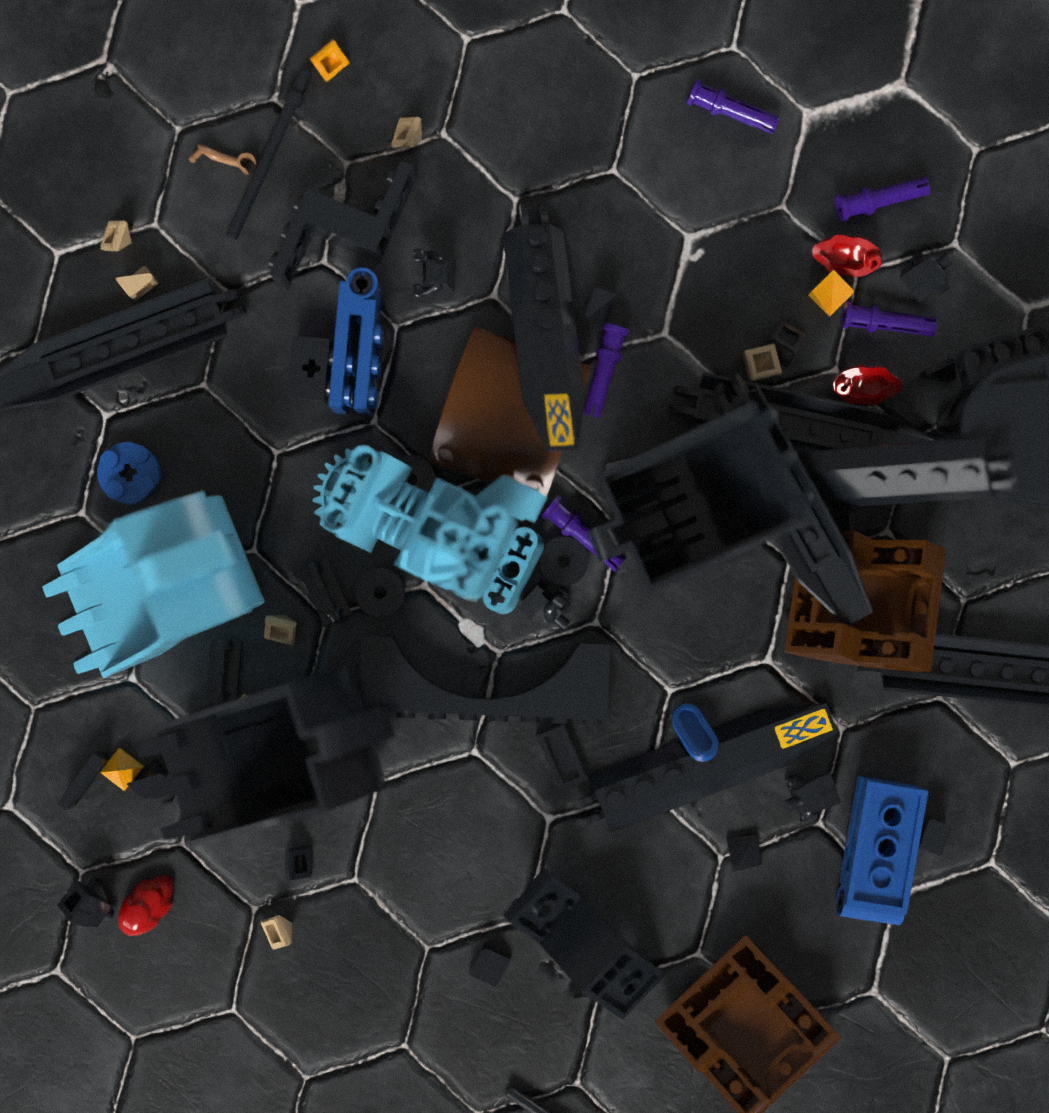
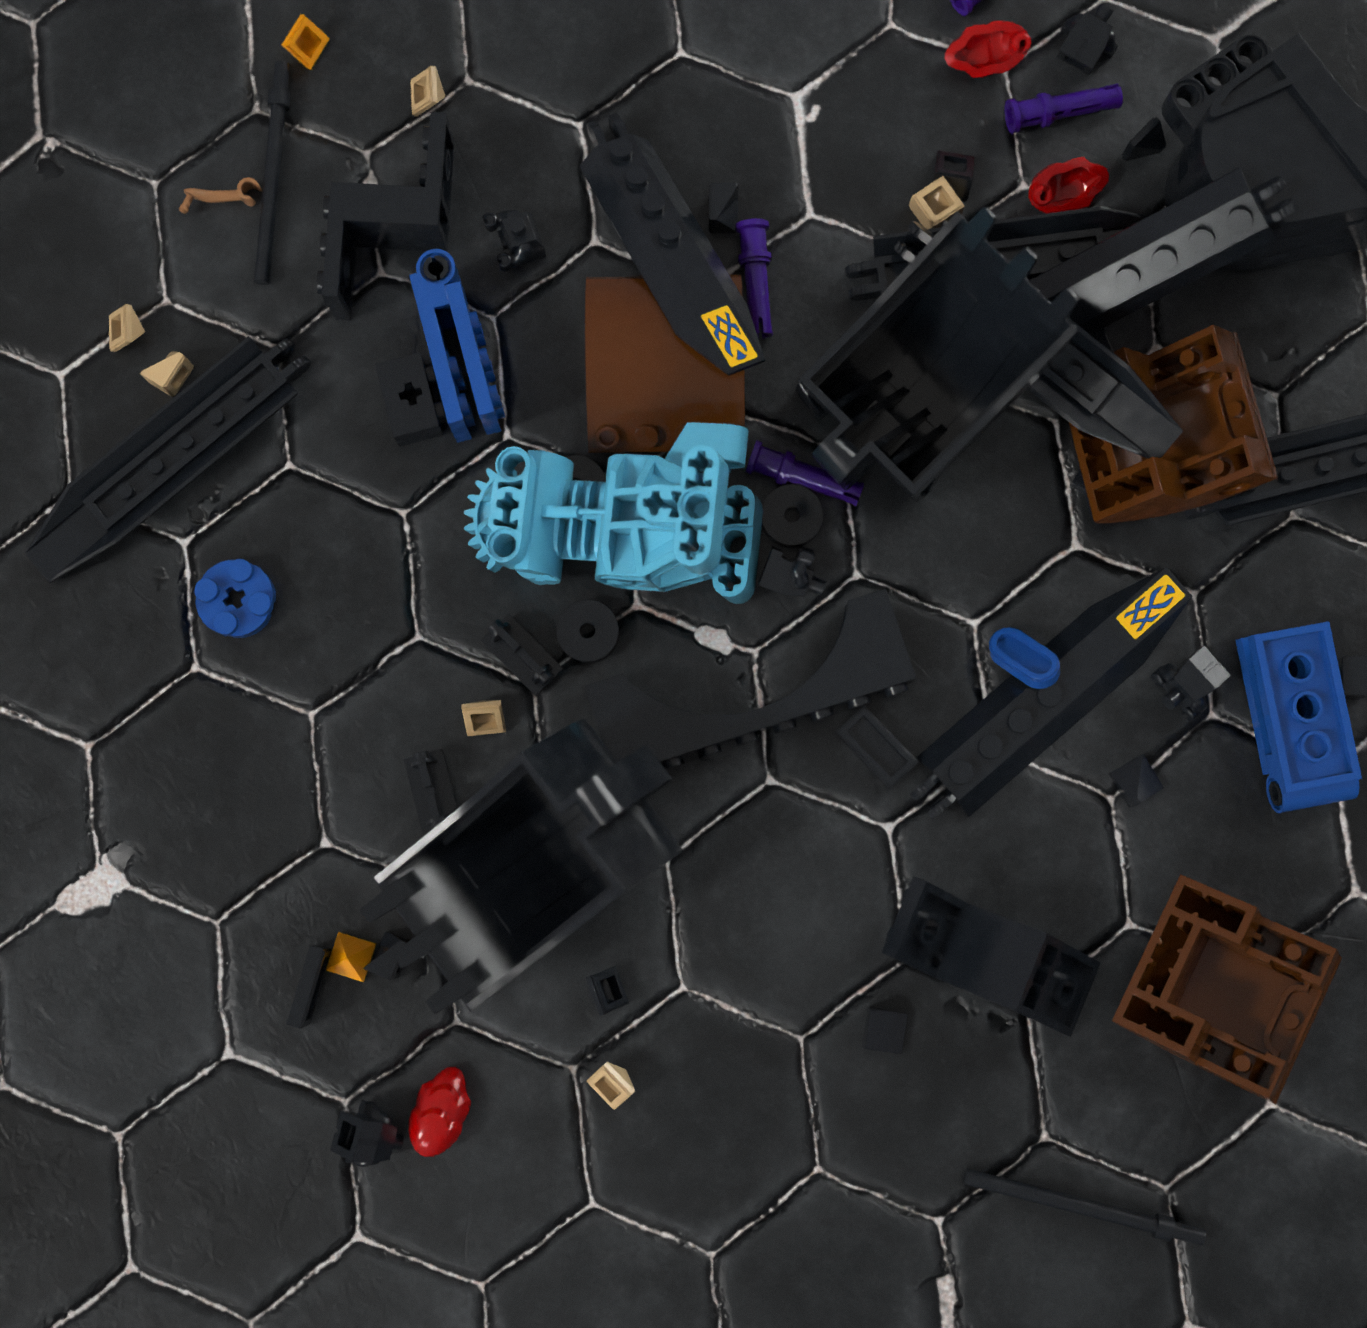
camera: 20 degrees left, 5 degrees down
(156, 582) = (312, 708): medium azure piece -> none
(831, 293) = (985, 98): light orange slope -> none

